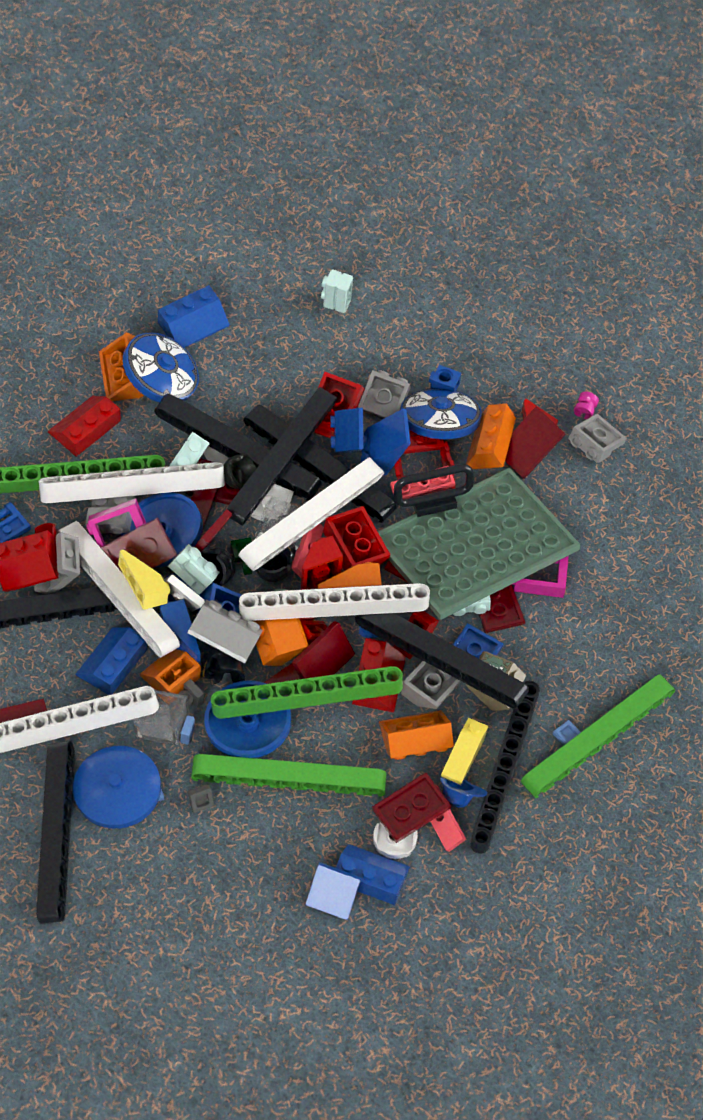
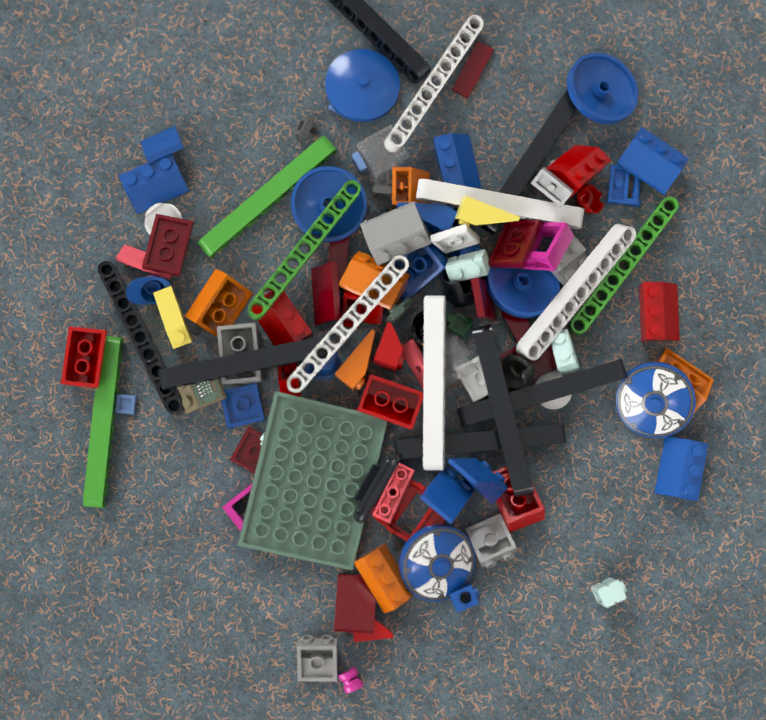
camera: 140 degrees right, 25 degrees up
(566, 785) = (83, 357): none -> red slope

